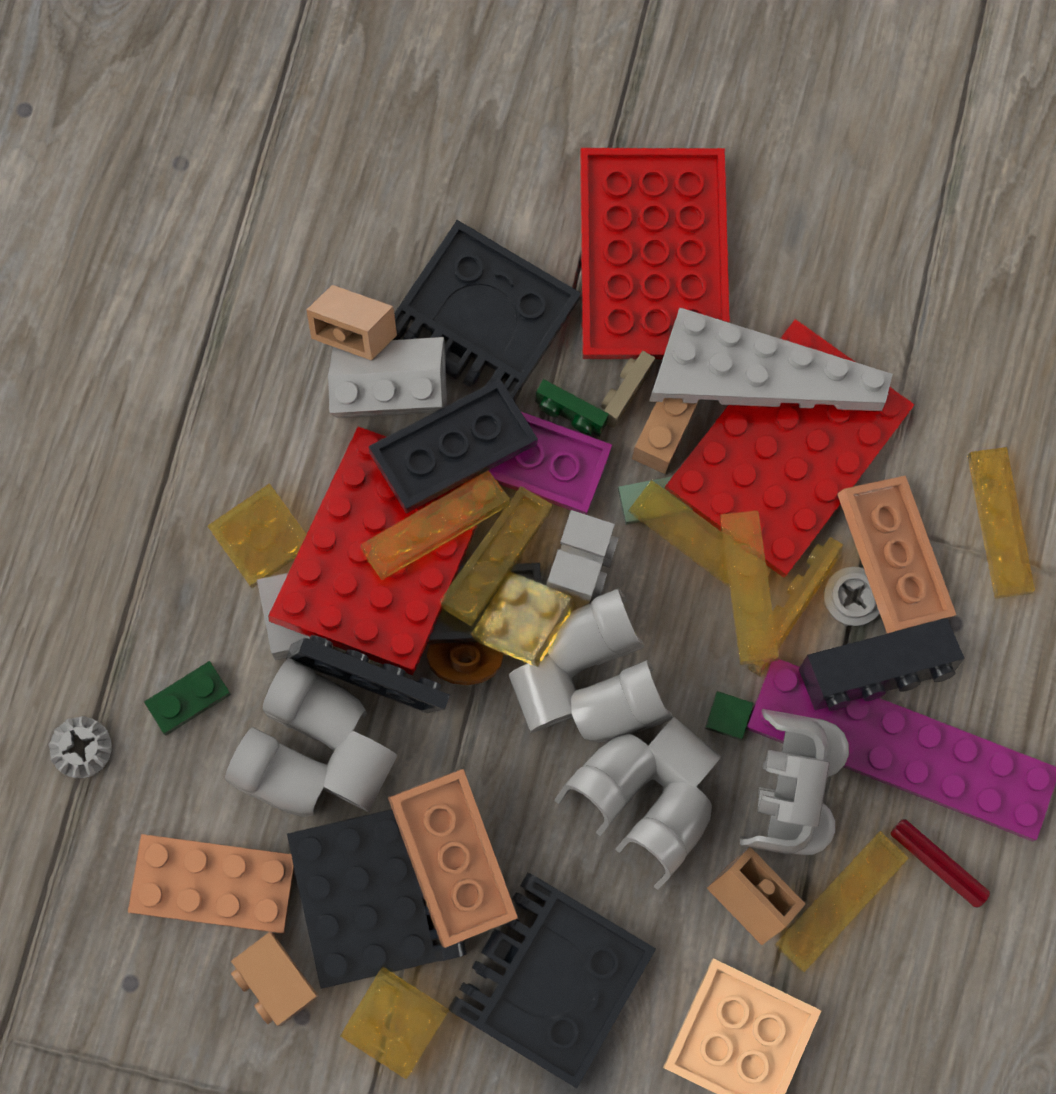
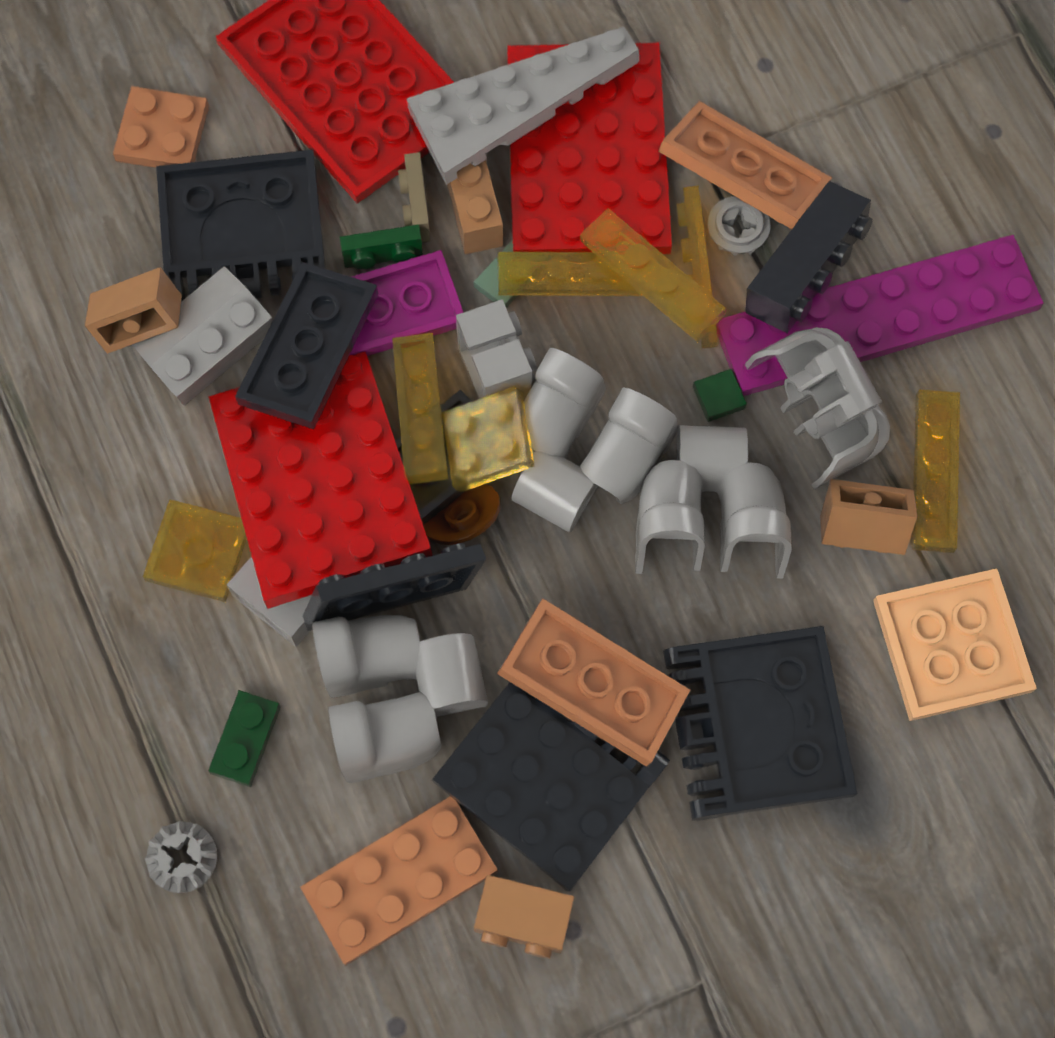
camera: 35 degrees left, 5 degrees down
(394, 1023) = (658, 866): clear yellow plate -> none
(435, 525) = (346, 420): clear yellow plate -> none
(486, 190) = (160, 128): none -> nougat plate
(940, 863) = (985, 380): dark red axle -> none
(1001, 522) = (803, 84): clear yellow plate -> none

